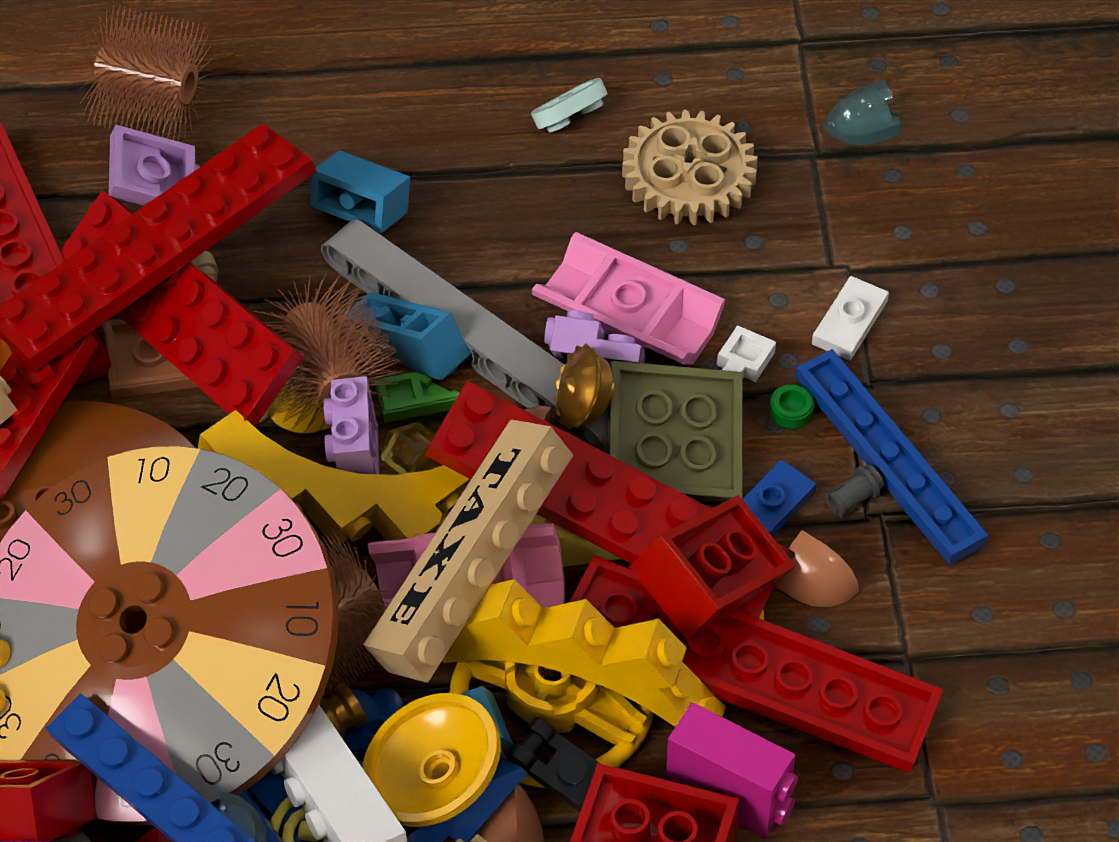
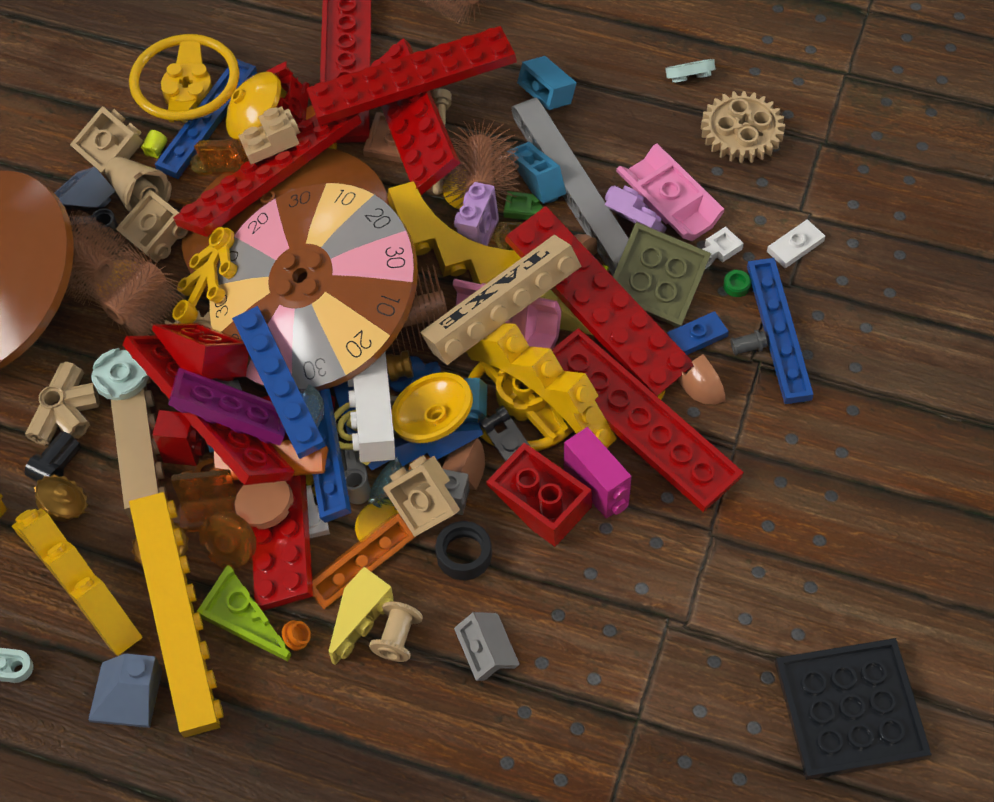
camera: 25 degrees right, 5 degrees up
(146, 164) = (433, 29): lavender plate -> none
(583, 388) = (614, 232): pearl gold piece -> none
(711, 566) = (638, 355): red slope -> none
(863, 116) = (861, 128): clear light blue brick -> none

